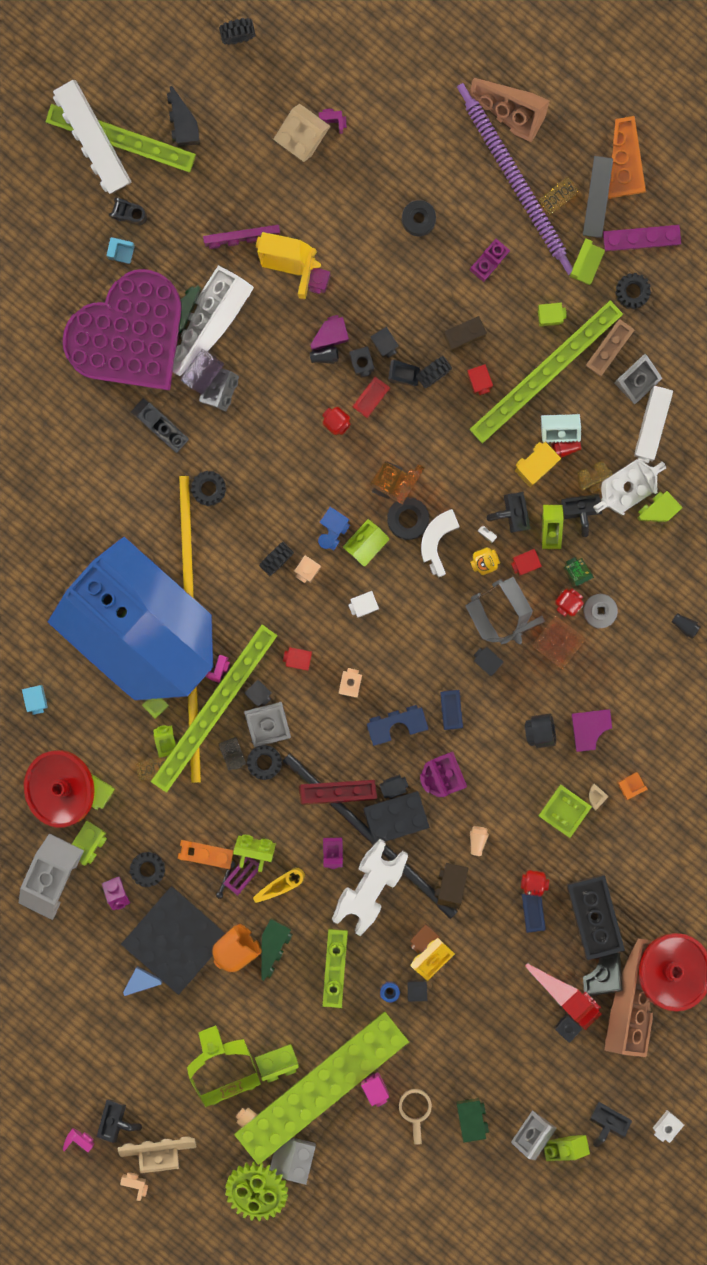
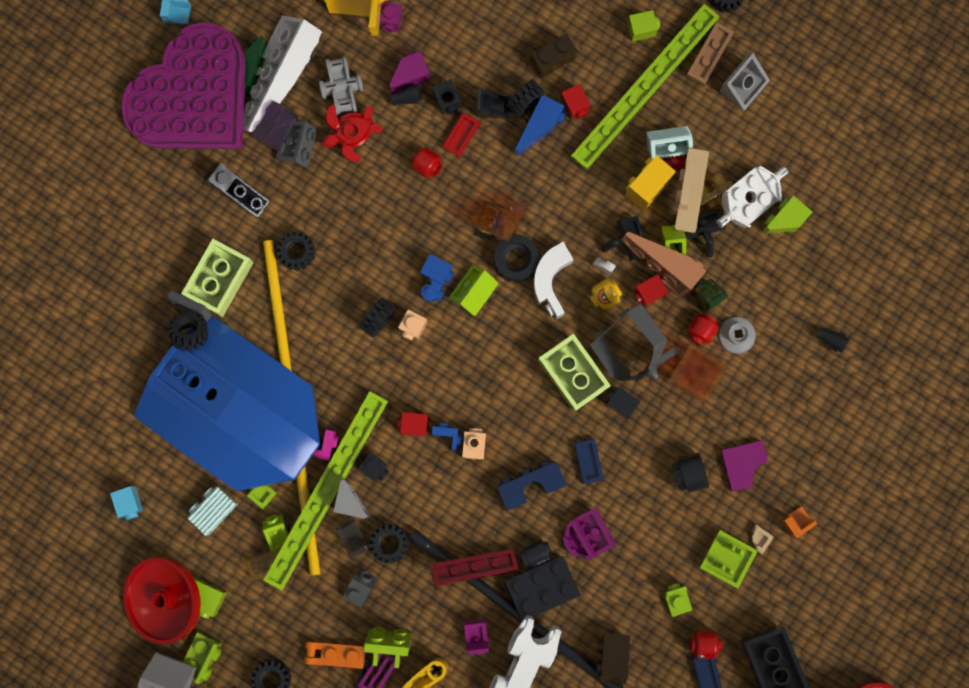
camera: 10 degrees left, 5 degrees down
(105, 543) = (188, 340): none -> black tyre
(108, 529) = (186, 304): none -> dark grey tile
(109, 715) = (212, 510): none -> light aqua brick
(135, 506) = (217, 277): none -> yellowish green brick
(233, 722) = (349, 502): none -> light grey slope
(234, 798) = (360, 587): none -> dark grey bracket
(266, 339) = (341, 86): none -> light grey axle
(267, 724) = (387, 500): light grey tile -> none
(269, 383) = (349, 131): none -> red animal
(325, 667) = (444, 430): none -> blue bracket
(363, 604) = (478, 356): white brick -> none
(385, 343) = (469, 75): black brick -> none
(446, 395) = (542, 122): none -> blue slope
(447, 629) = (573, 372): none -> yellowish green brick
(478, 839) = (636, 603): light nougat cone -> none
(515, 841) = (677, 599): none -> lime bracket
(552, 548) = (677, 270): none -> nougat wedge
(572, 481) = (691, 191): none -> tan bracket
(653, 423) = (768, 125): white slope -> none

